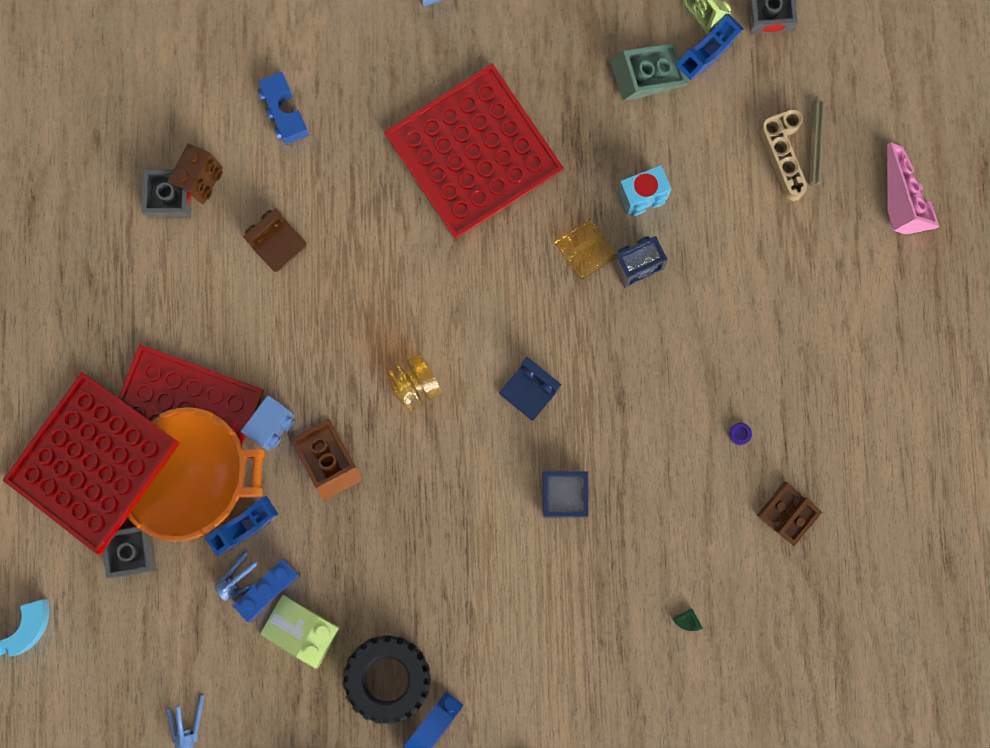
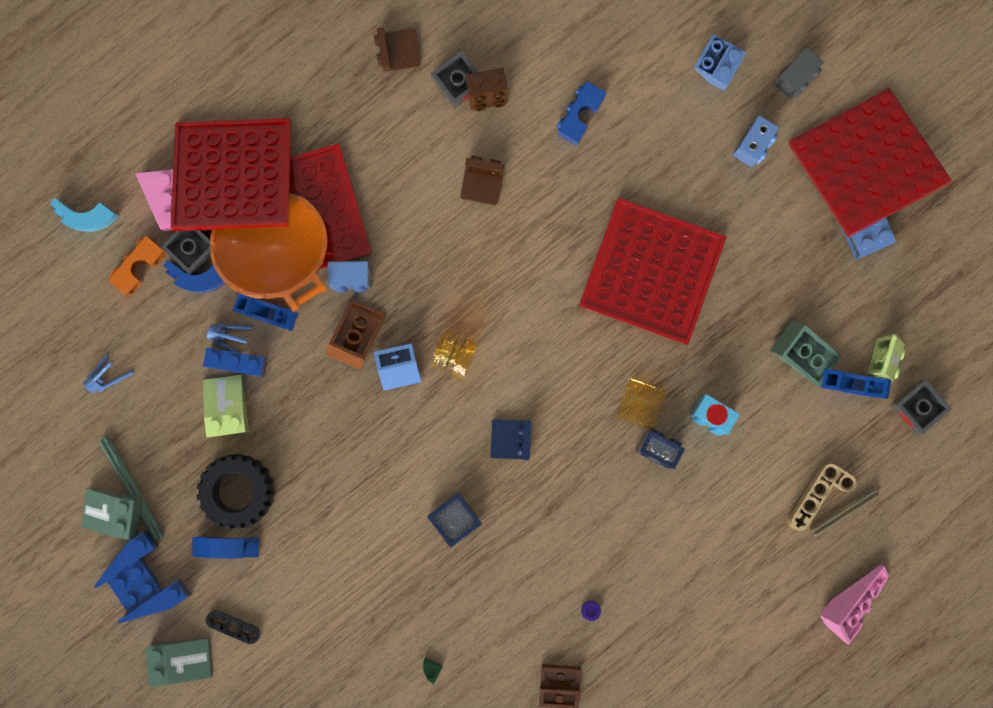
camera: 50 degrees right, 5 degrees up
(55, 542) = (158, 192): none -> bright pink wedge
(96, 228) = (397, 49): none -> reddish brown bracket
(99, 598) = (125, 277): none -> orange arch
(171, 564) = (200, 283): none -> blue arch
(385, 442) = (397, 367): none -> medium blue slope

